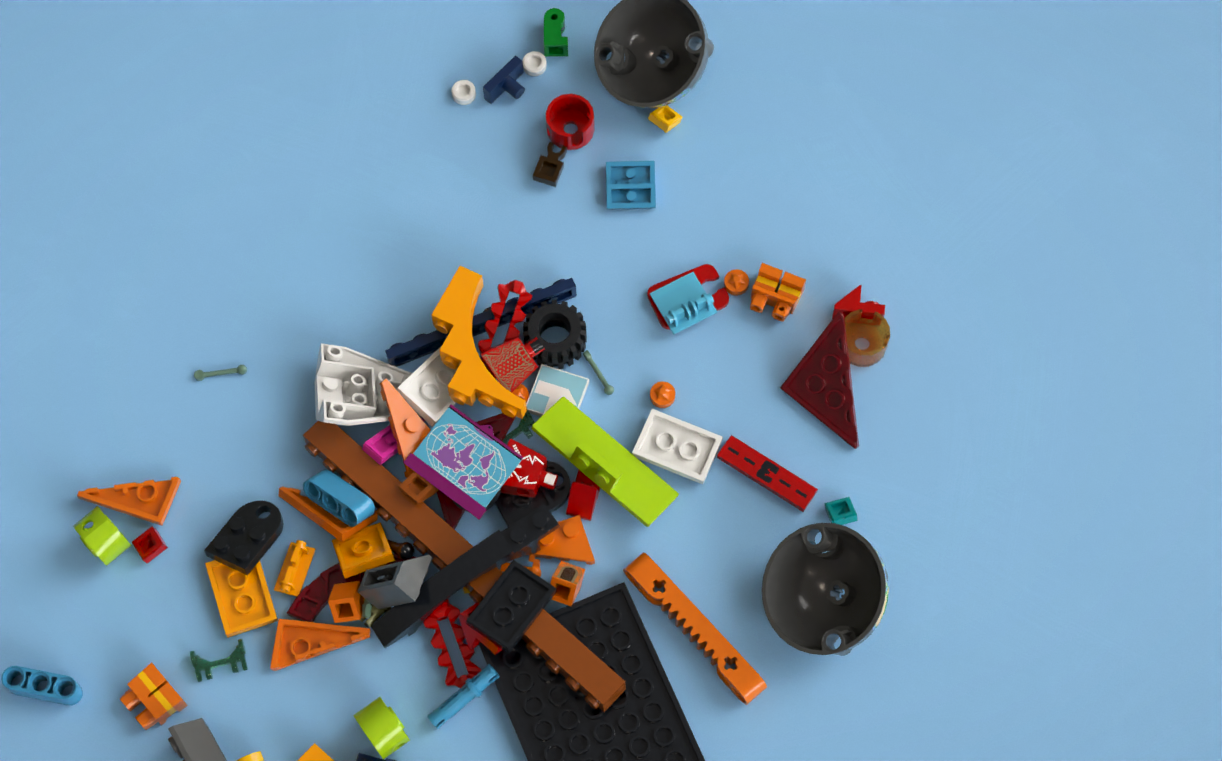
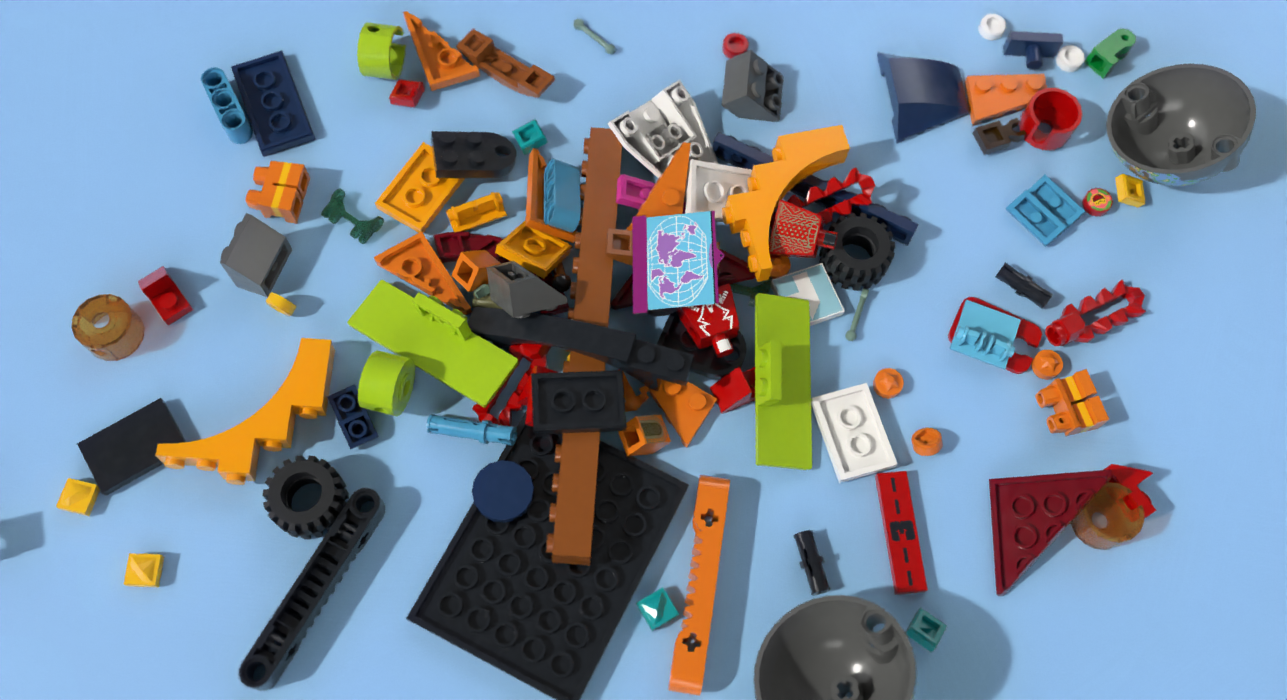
camera: 45 degrees right, 0 degrees up
(66, 650) = (272, 103): none -> dark blue tile
(192, 457) = (502, 67): none -> dark orange slope
(266, 484) = (530, 136): none -> teal tile
(319, 280) = (734, 45): none -> red tile
(367, 297) = (752, 88): none -> dark grey slope
(373, 671) = (435, 341): none -> lime bracket
(473, 185) = (922, 93): none -> dark blue wedge
(520, 134) = (999, 94): none -> orange wing
(527, 707) = (502, 491): none -> dark blue tile
(654, 145) = (1097, 202): none -> tile
(671, 247) = (1024, 285): none -> black pin
(688, 670) = (657, 609): none -> teal tile
(723, 404) = (927, 441): none -> orange tile
(724, 243) = (1072, 326): none -> red sword
(740, 546) = (812, 562): none -> black pin

